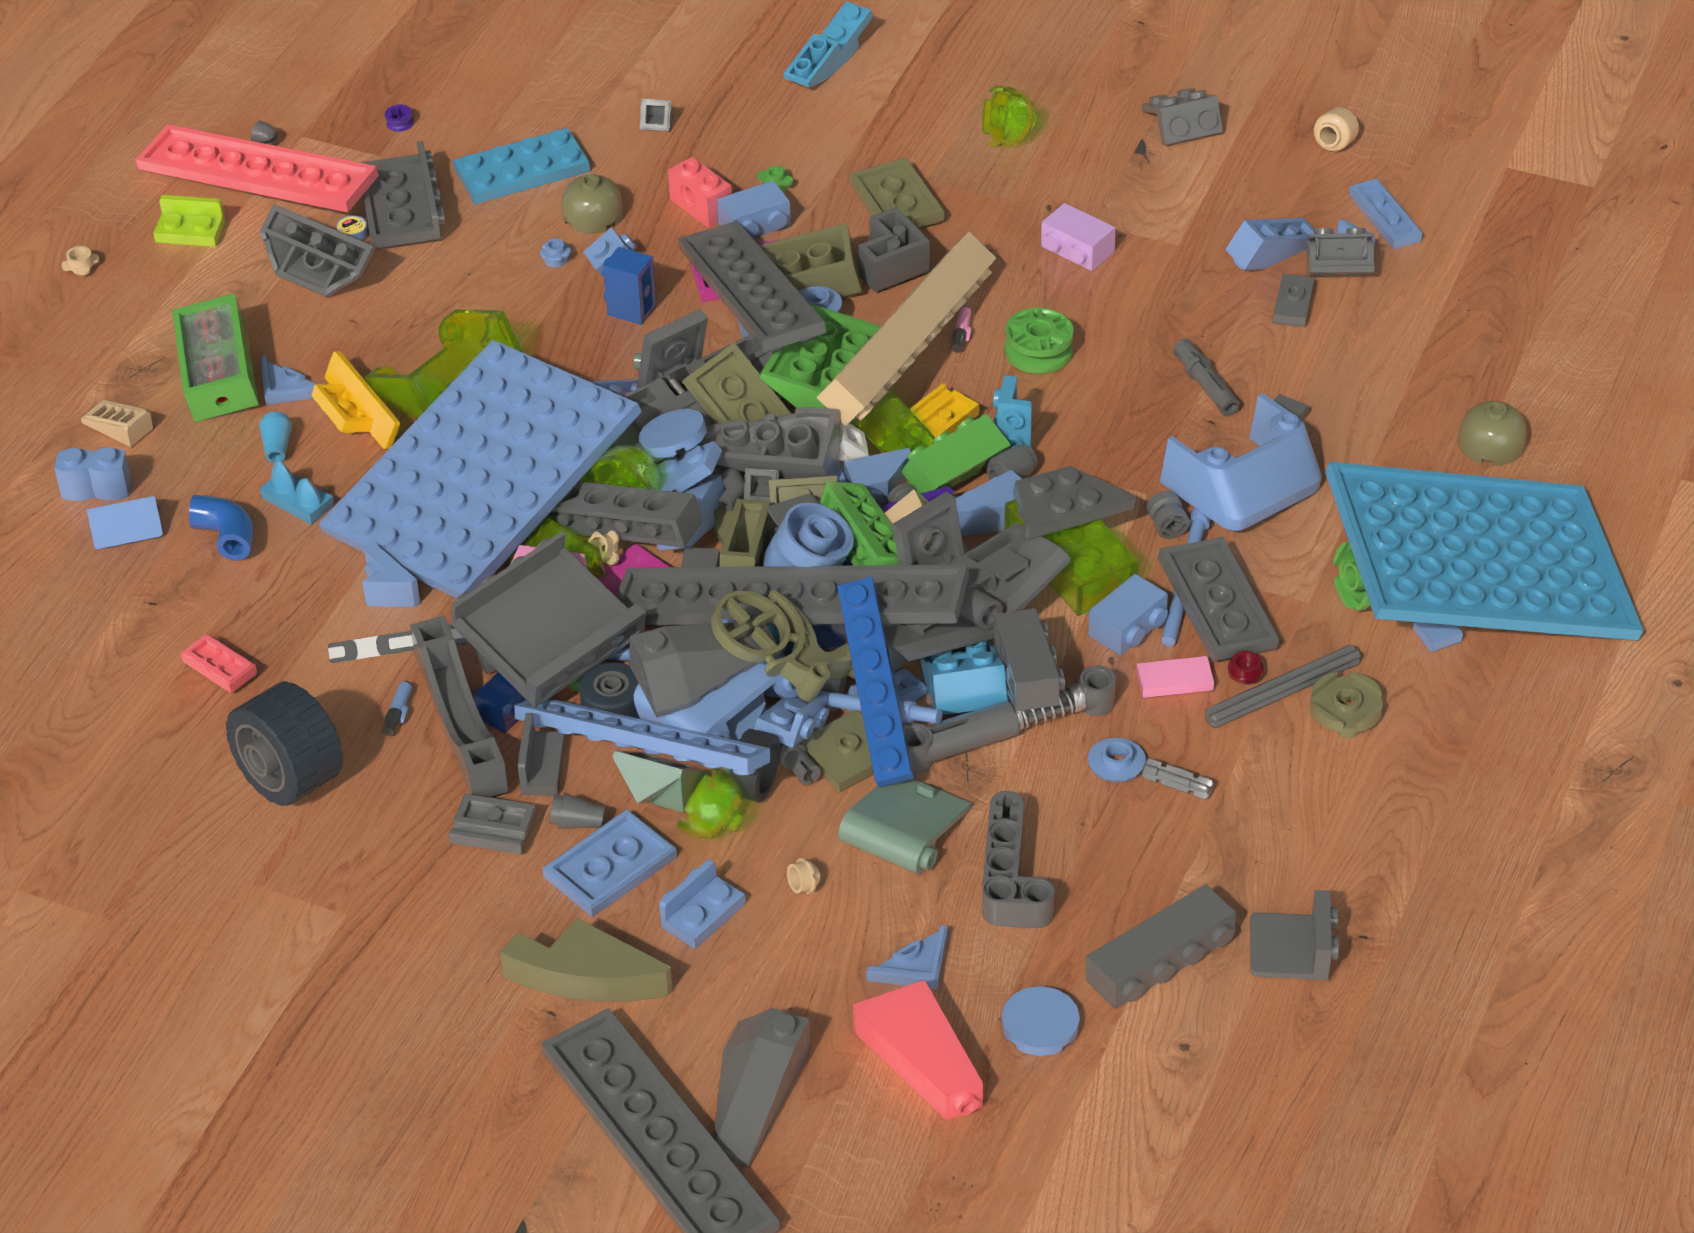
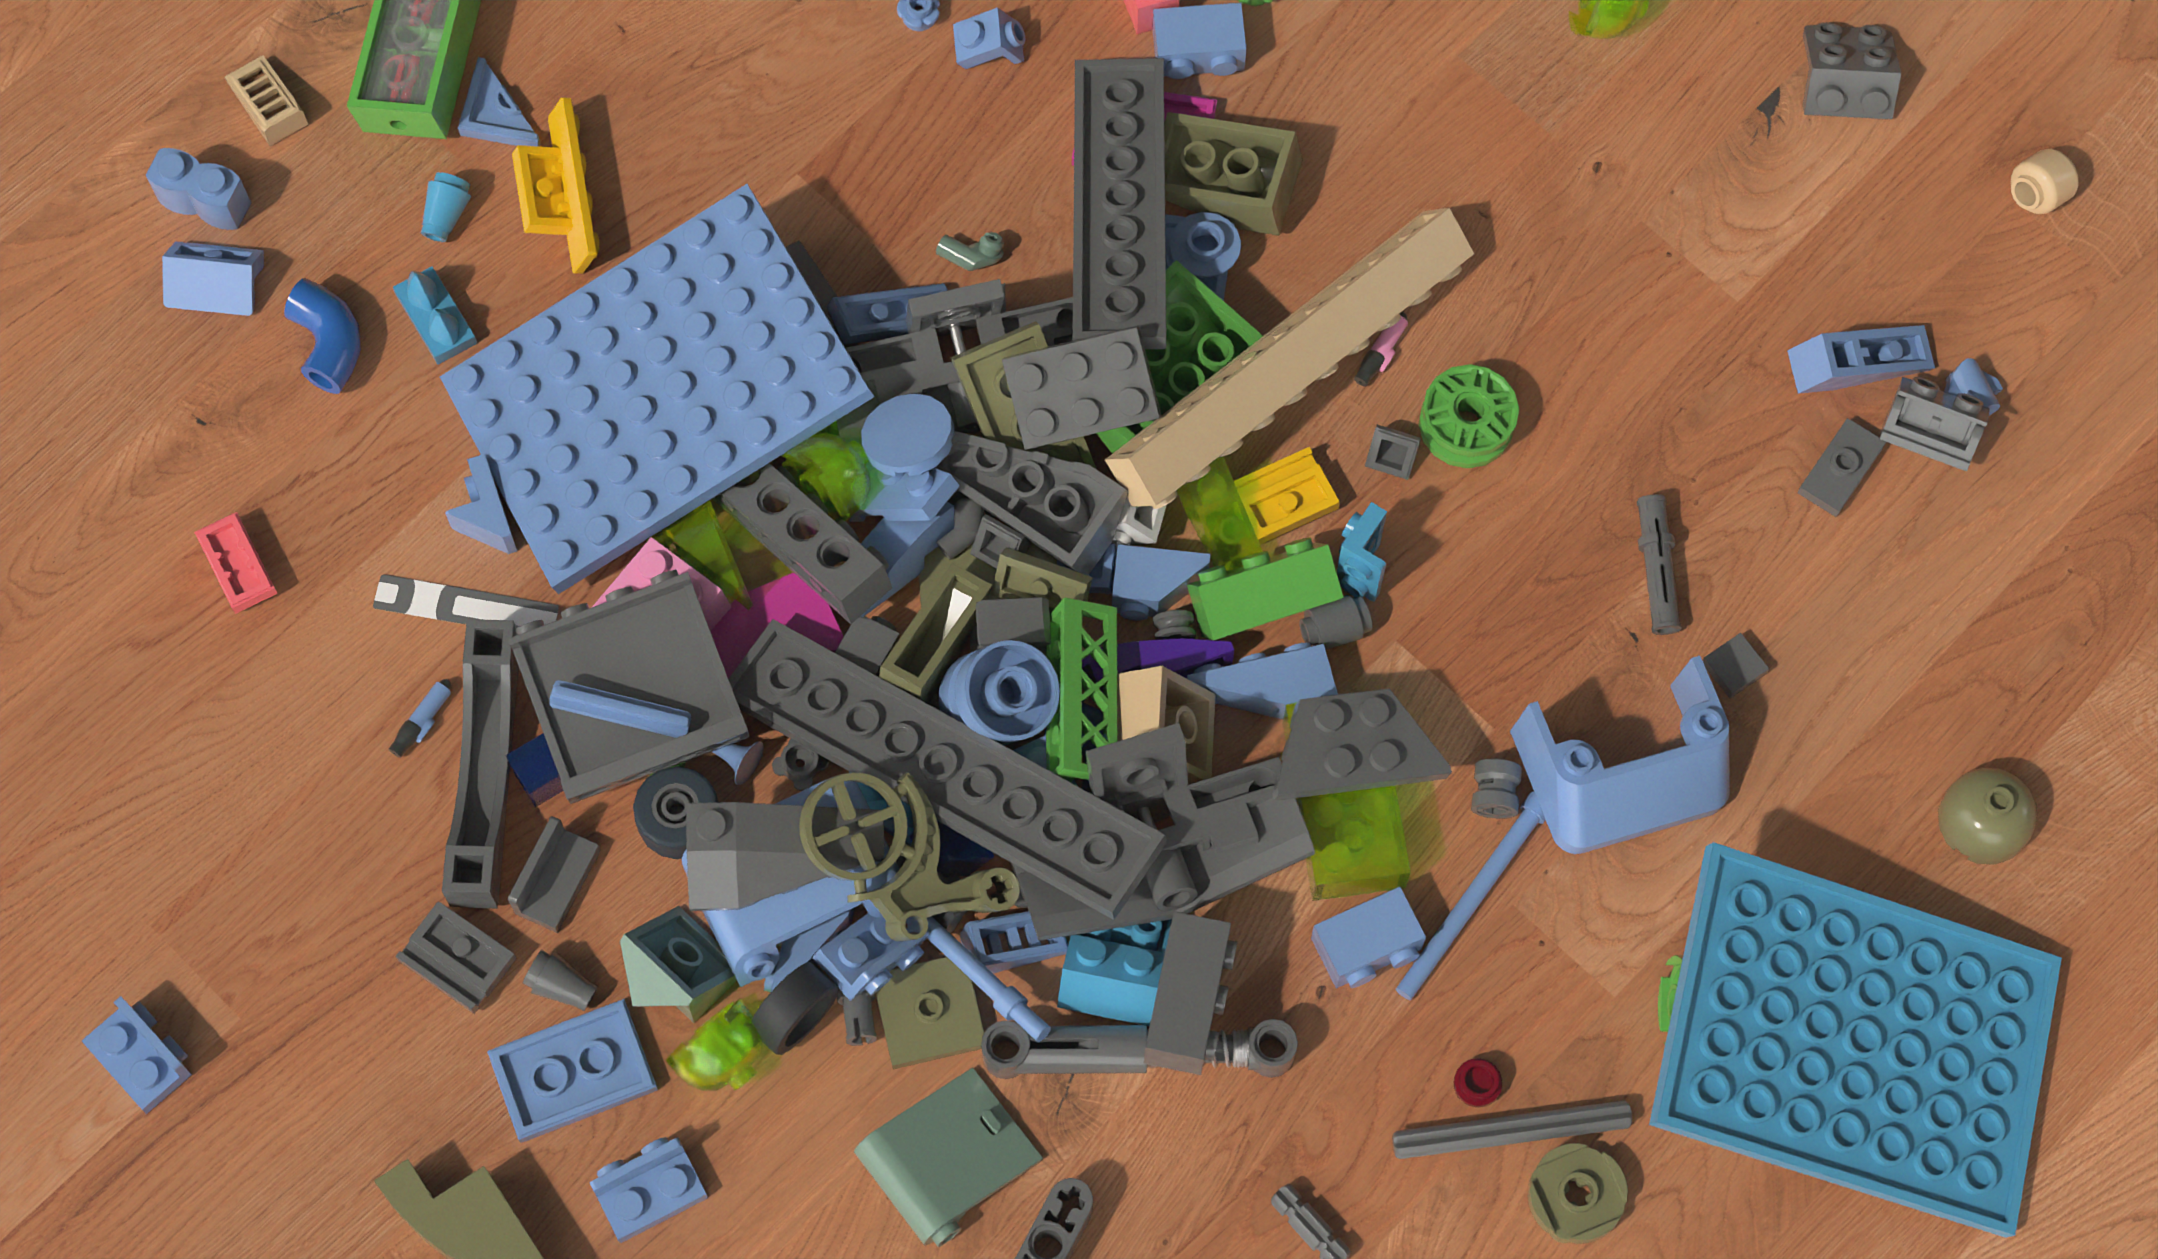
camera: 20 degrees right, 25 degrees up
(281, 950) = (136, 1055): none -> medium blue bracket
(284, 743) = (244, 754): black wheel -> none
(463, 338) = (699, 171): clear neon green windscreen -> none
(545, 630) = (619, 709): none -> medium blue axle
(608, 546) = (761, 568): tan plate -> none
(629, 285) = (976, 124): blue brick -> none
(648, 735) = (682, 933): medium blue plate -> none
(780, 367) = (1081, 387): none -> plate
(803, 876) = (788, 1194): tan plate -> none
(875, 682) = (982, 958): blue plate -> none
(894, 251) = (1351, 193): dark grey brick -> none
(897, 186) = (1398, 80): olive plate -> none
(995, 368) = (1392, 452): none -> dark grey slope
(1078, 236) = (1603, 249): lavender brick -> none
(1112, 769) = (1256, 1185): medium blue piece -> none
(1175, 676) = (1384, 1057): bright pink tile -> none
(1218, 598) = (1491, 962): dark grey plate -> none
(1385, 213) = (2041, 356): medium blue tile -> none

